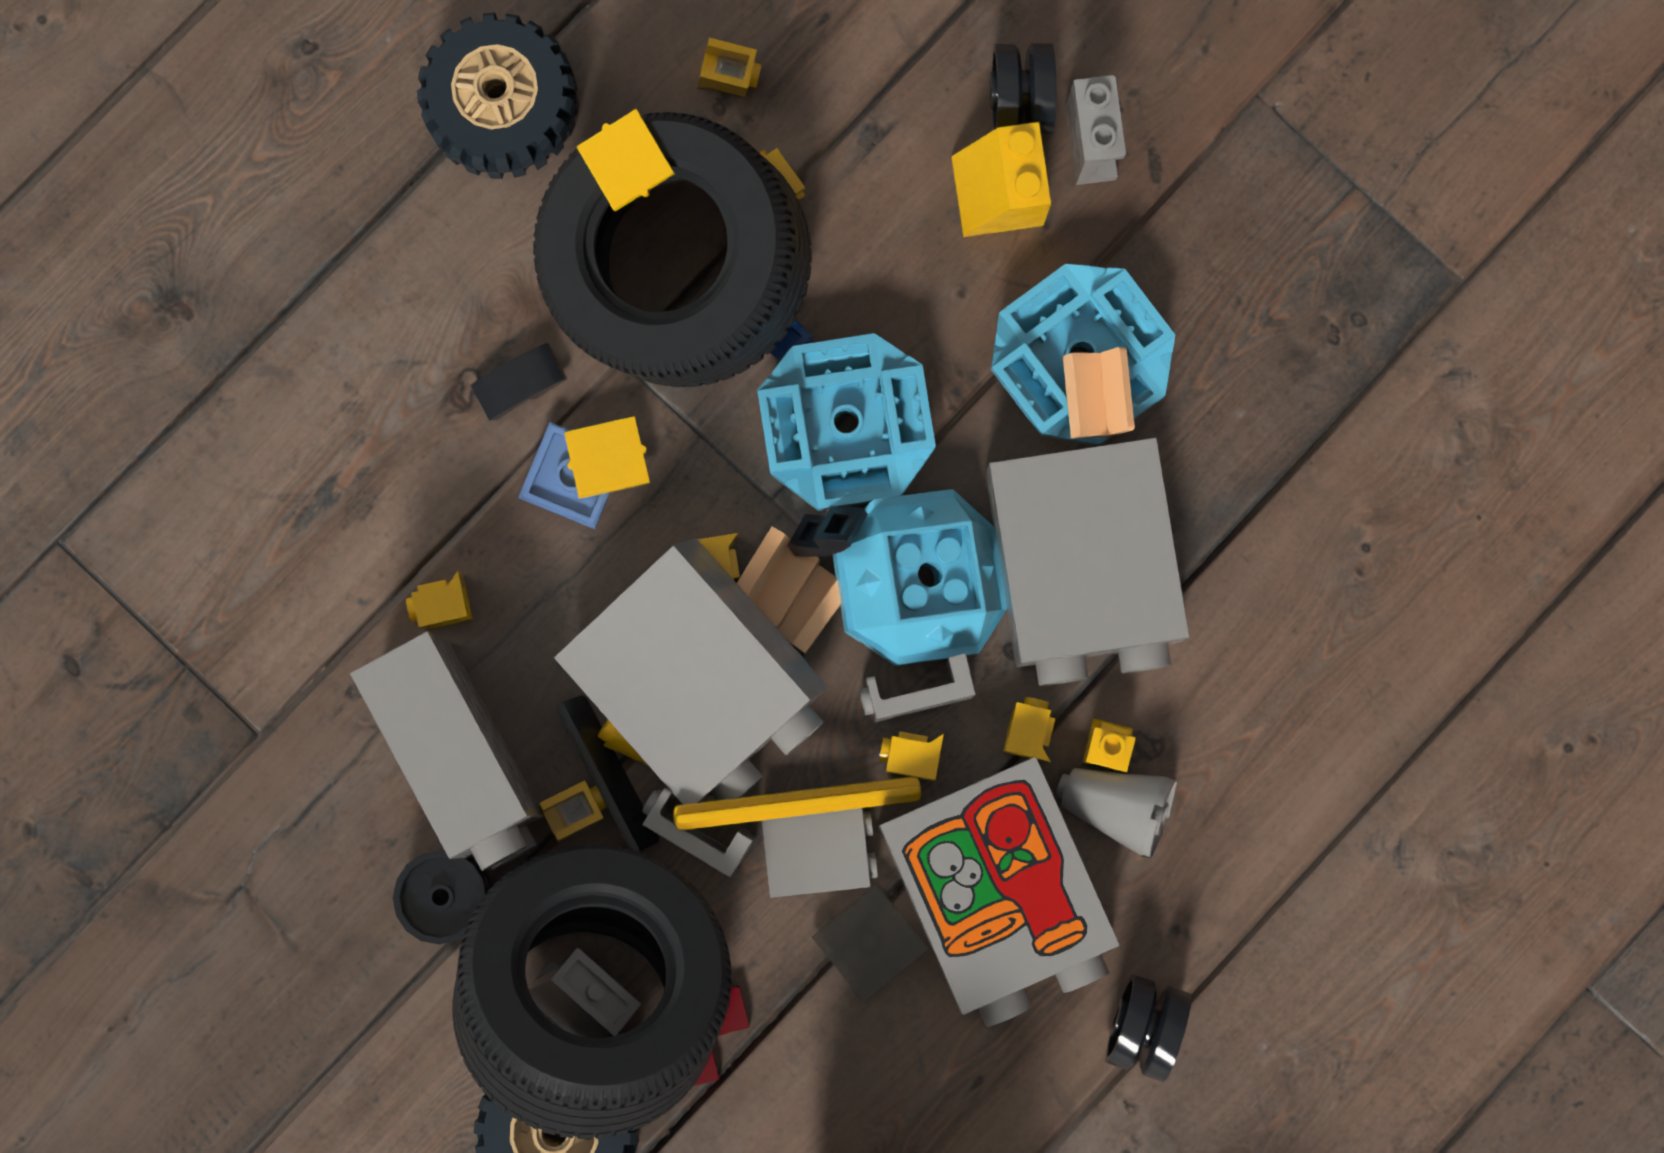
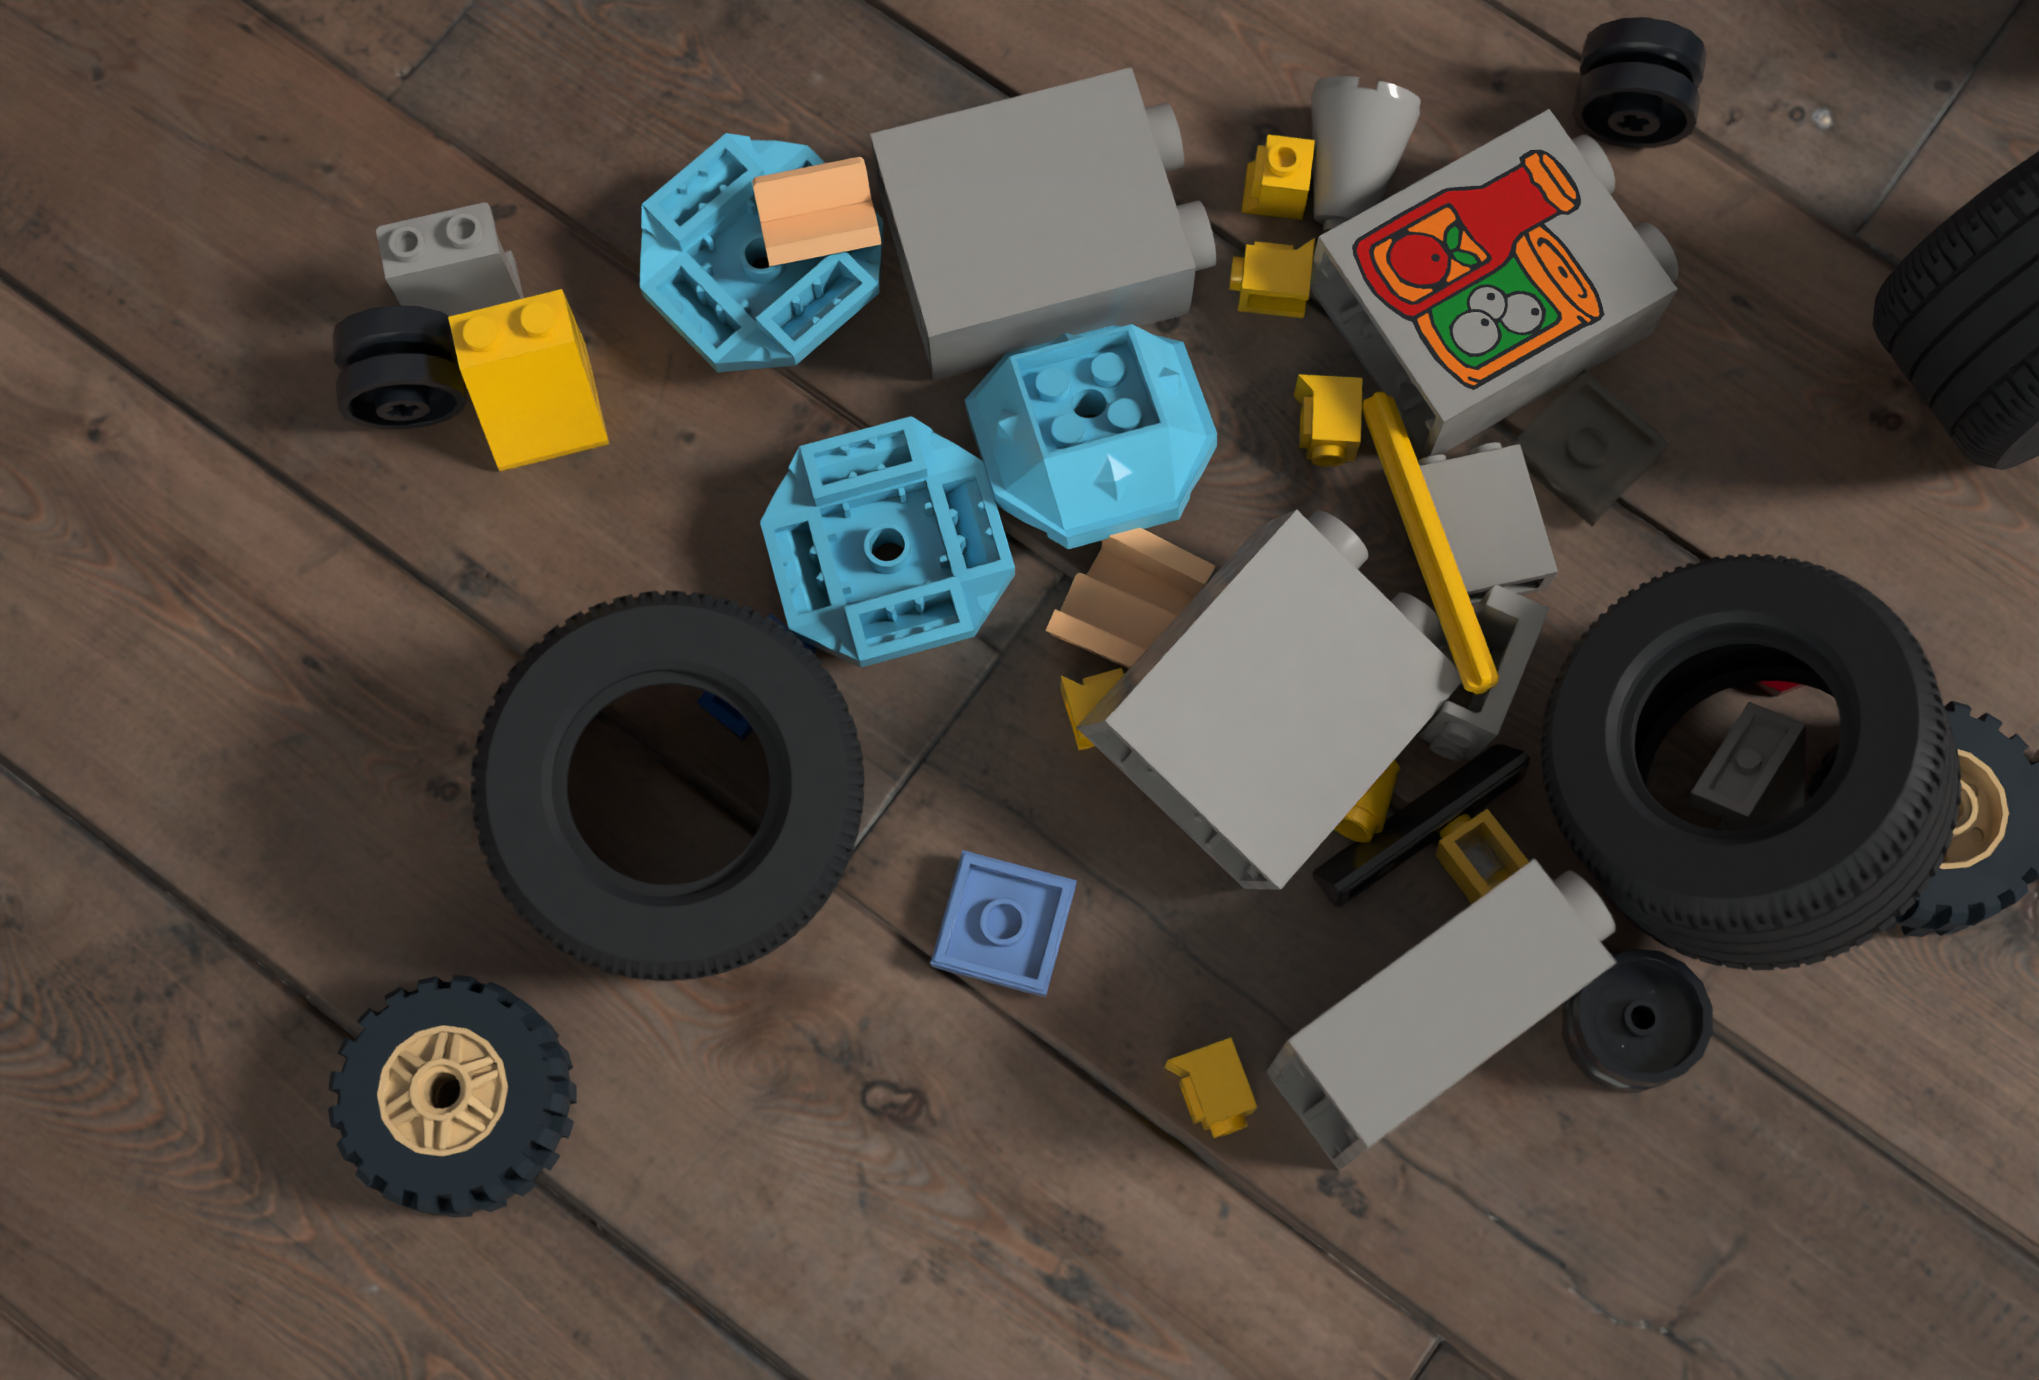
camera: 95 degrees left, 10 degrees down
(518, 381) = (876, 1019): black slope -> none
(607, 457) = (974, 873): yellow piece -> none
(625, 160) = (548, 840): yellow piece -> none
(729, 68) = (390, 777): yellow window -> none
(827, 533) = (1048, 551): black slope -> none
(958, 690) = (1234, 364): light grey panel -> none

